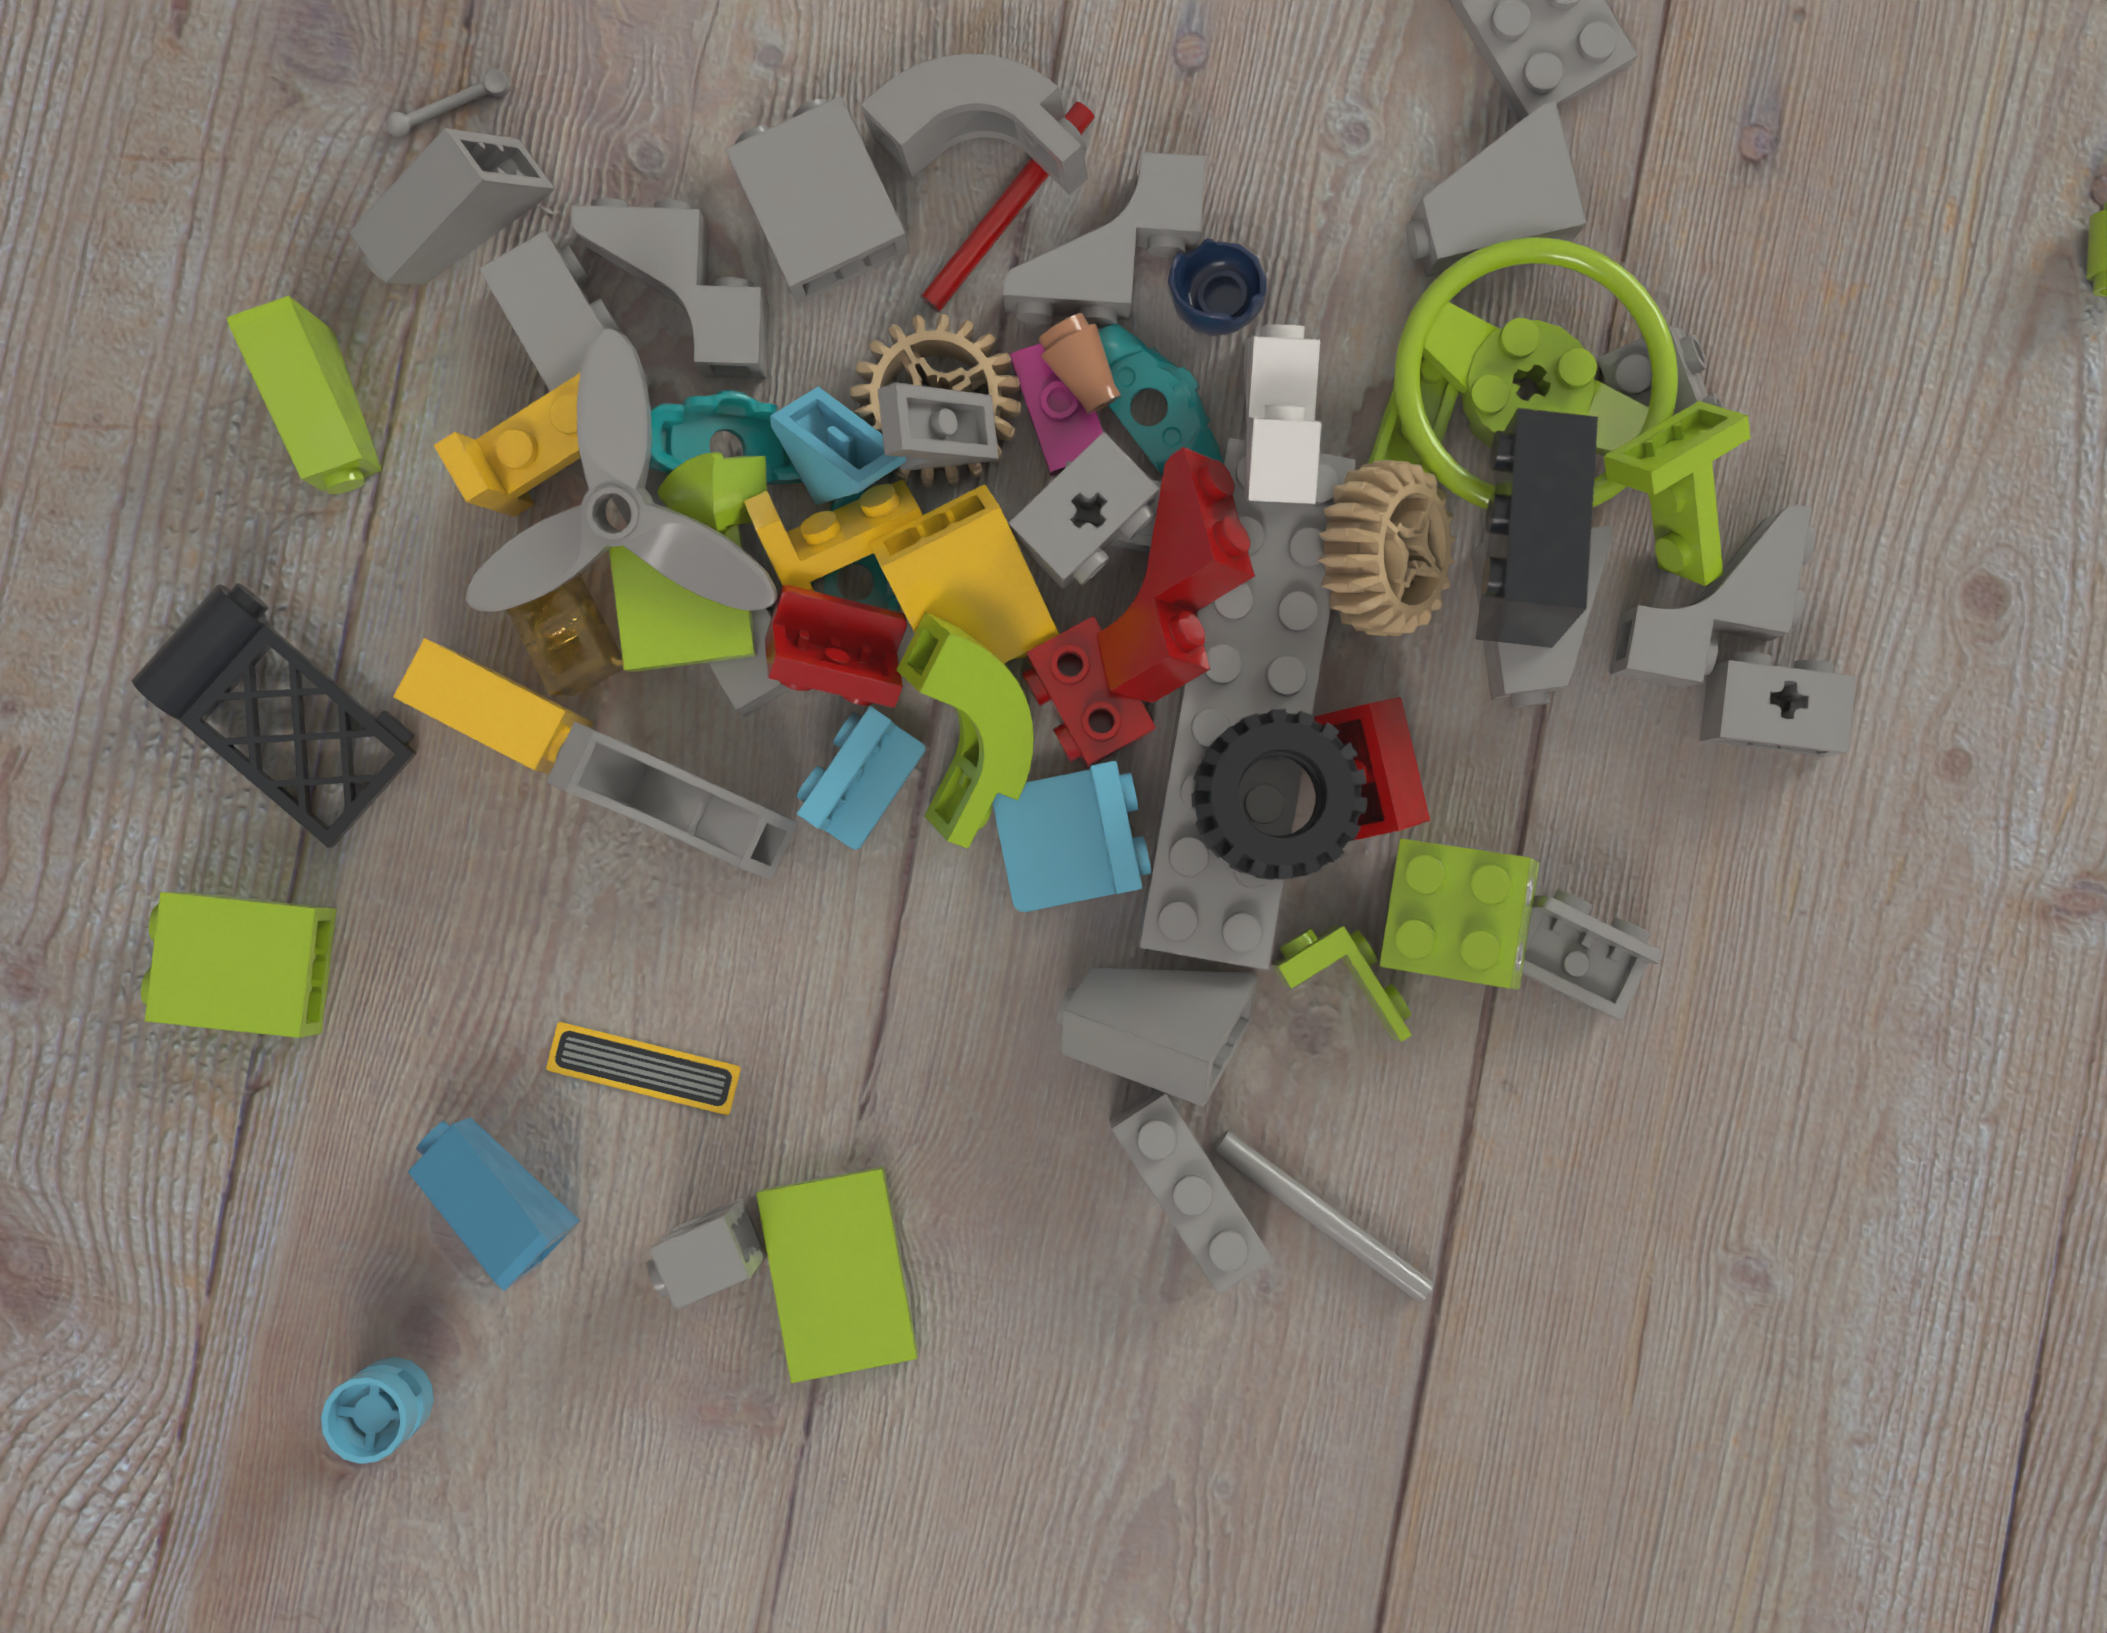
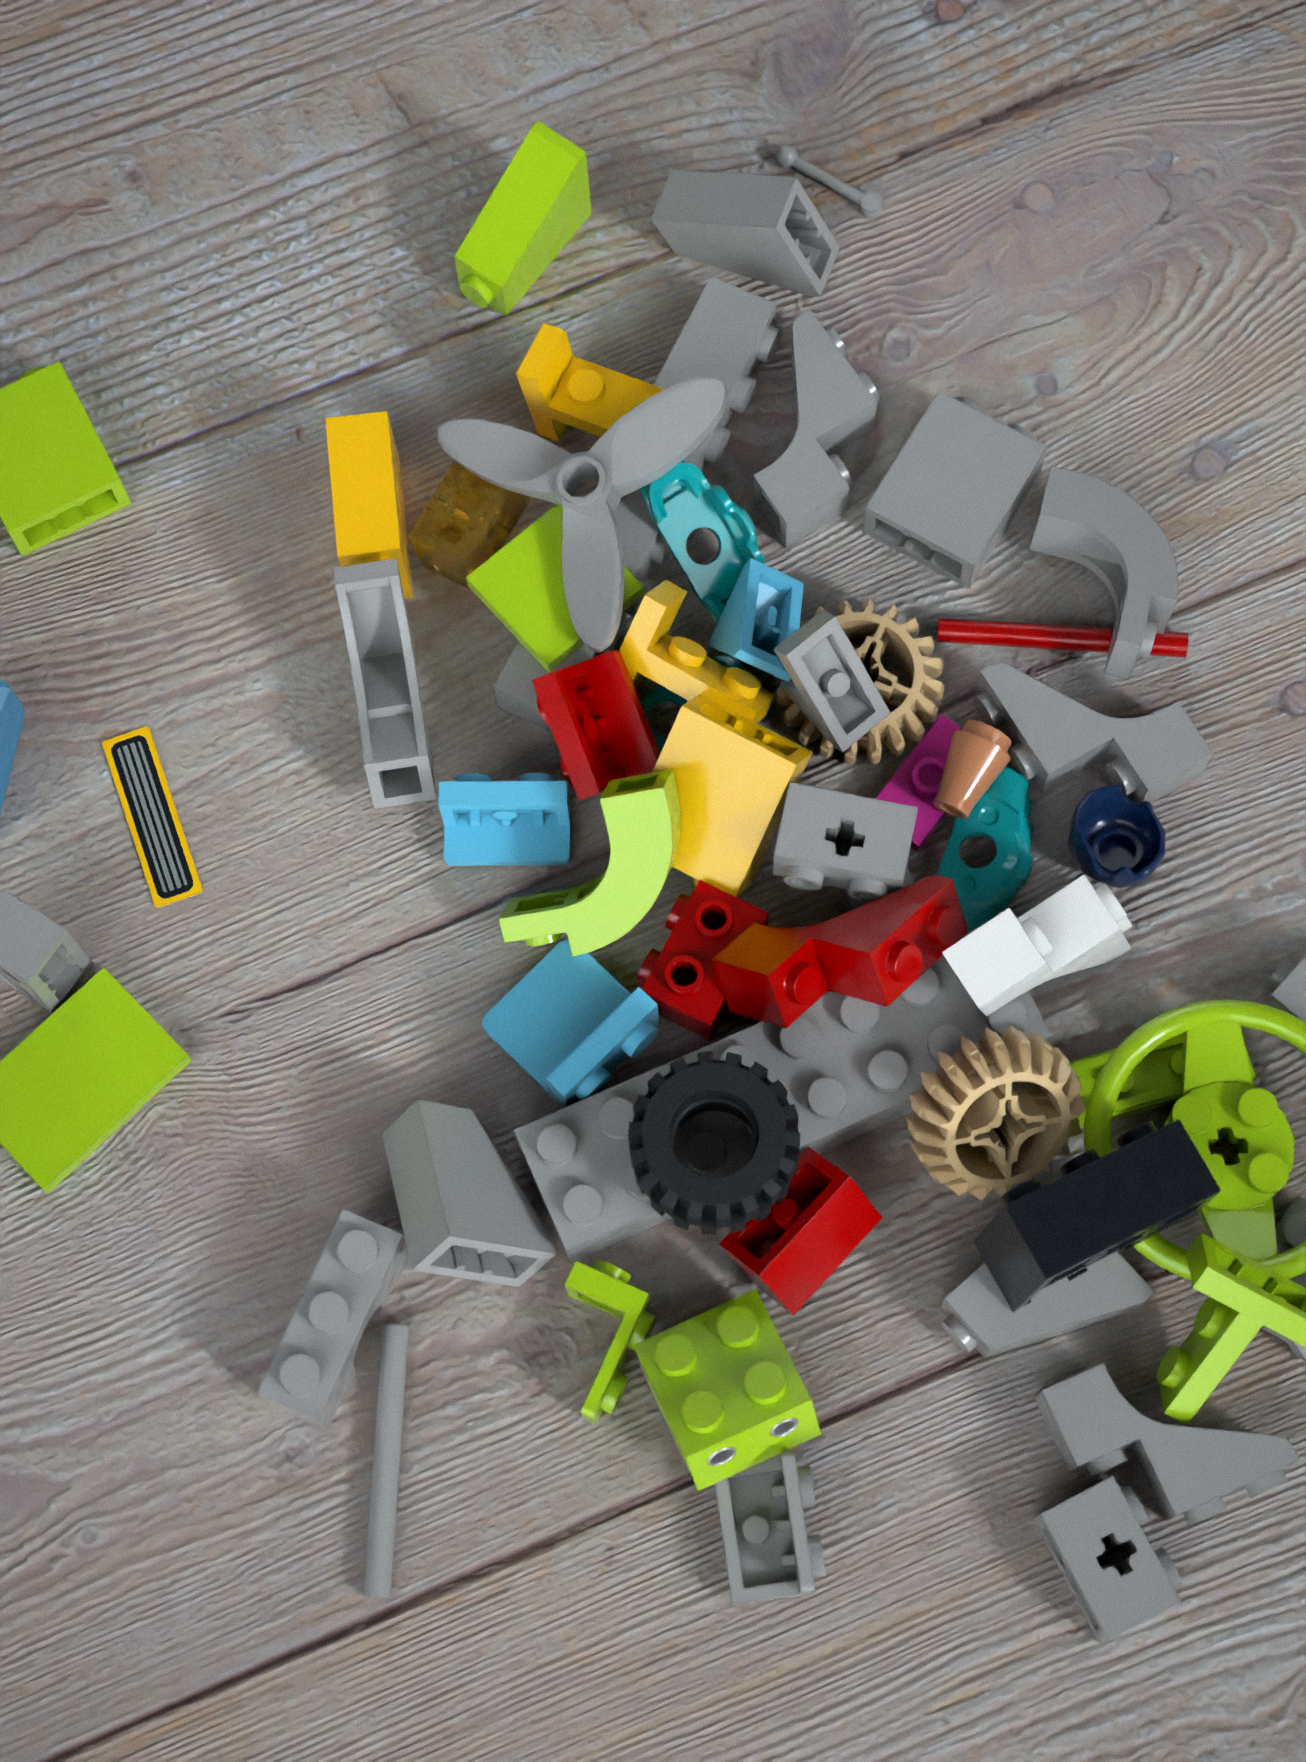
camera: 65 degrees right, 15 degrees down
(221, 648) = (271, 286): black piece -> none
(714, 488) = (659, 551): lime tile -> none

